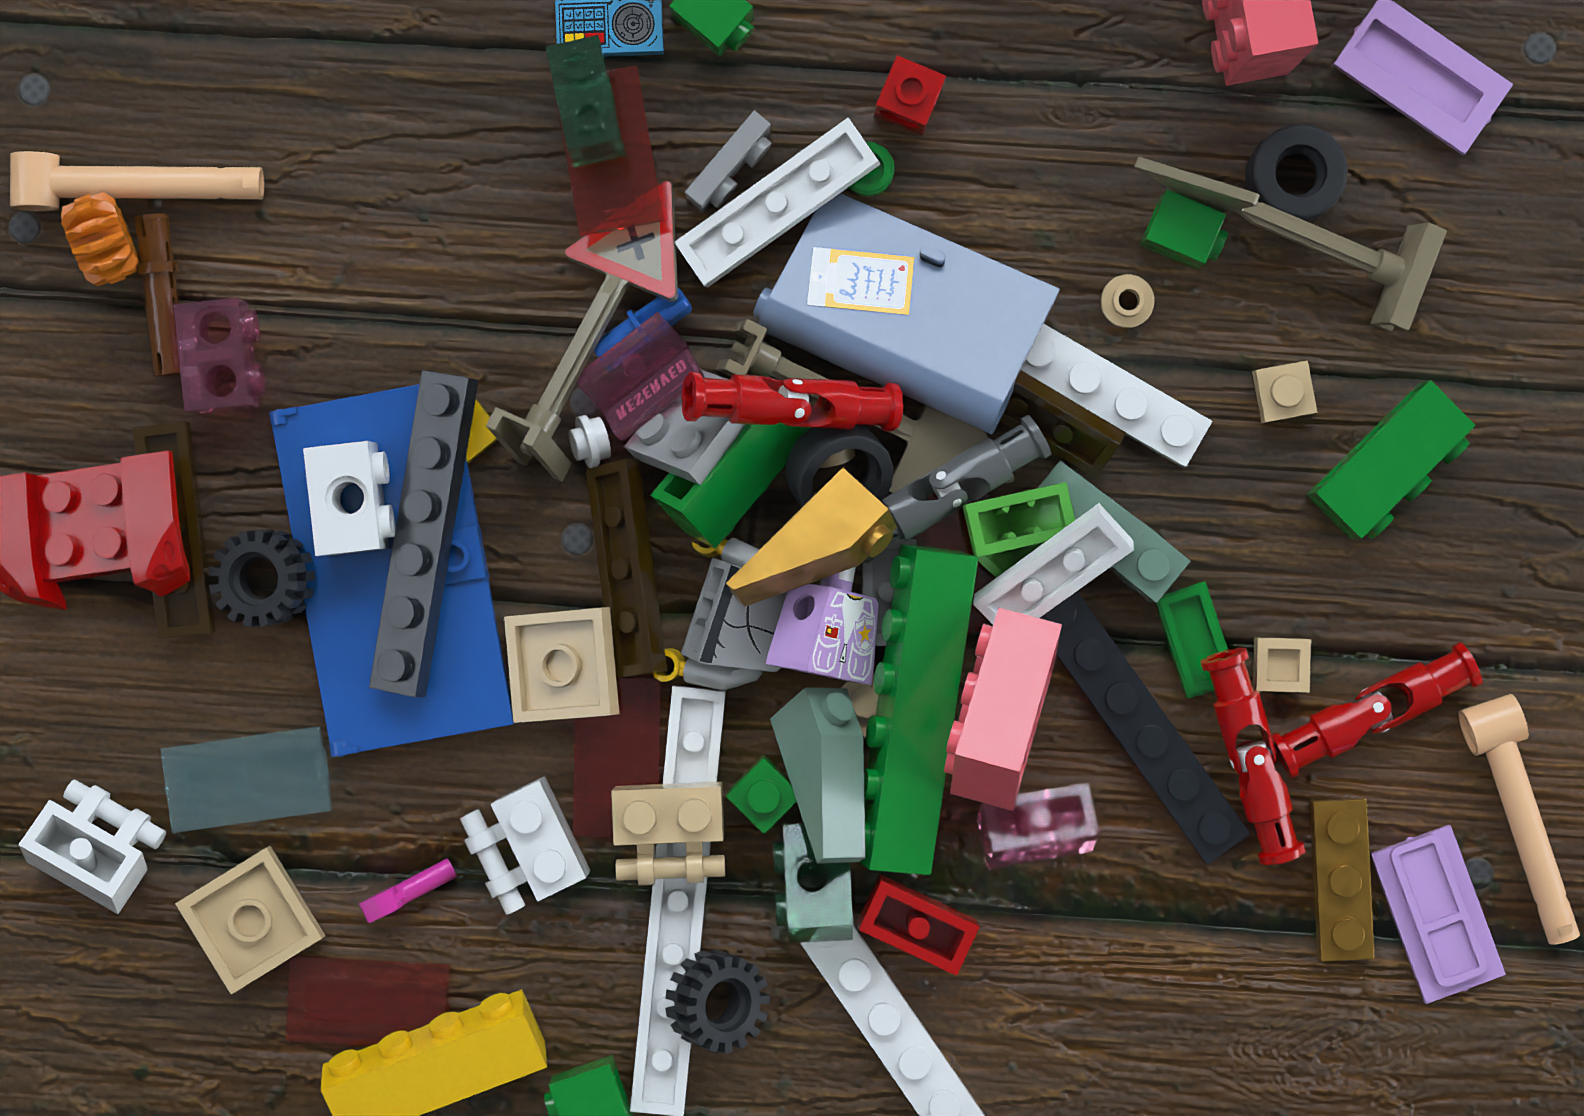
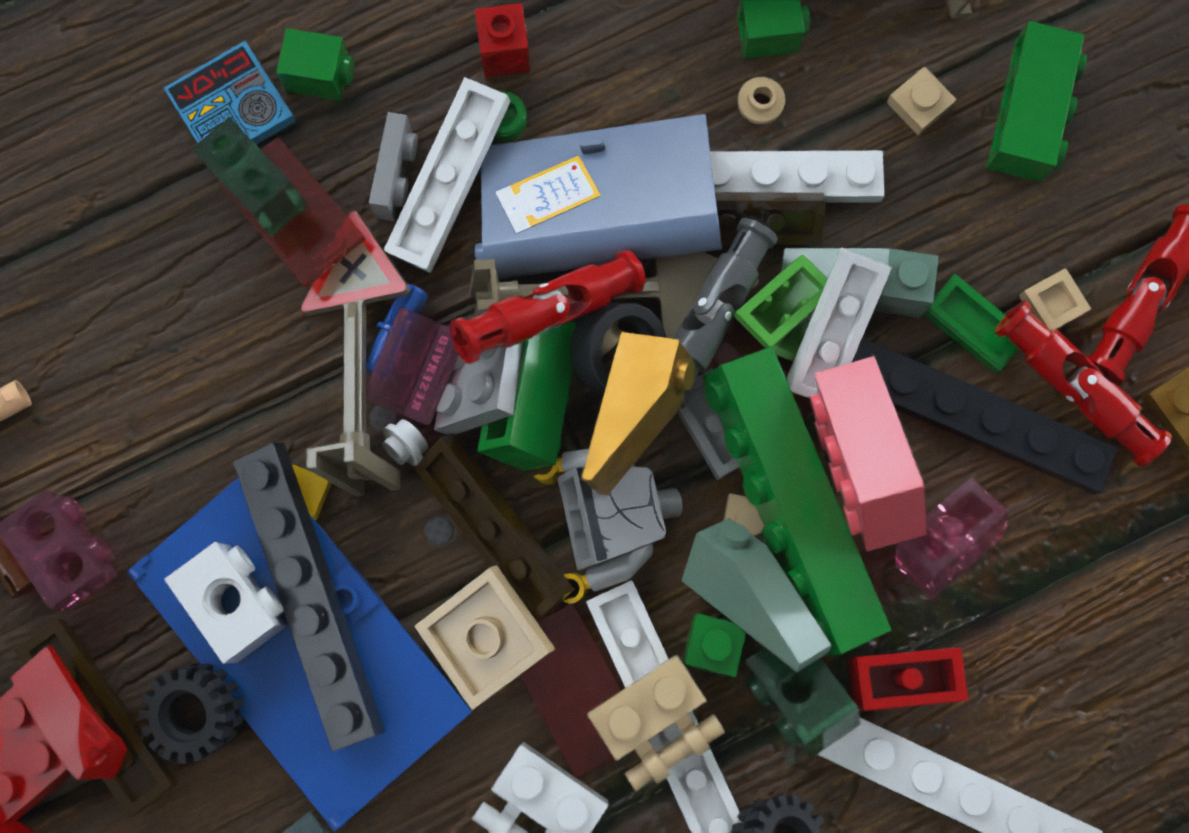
camera: 30 degrees left, 10 degrees down
(827, 631) = (686, 479): lavender torso -> none

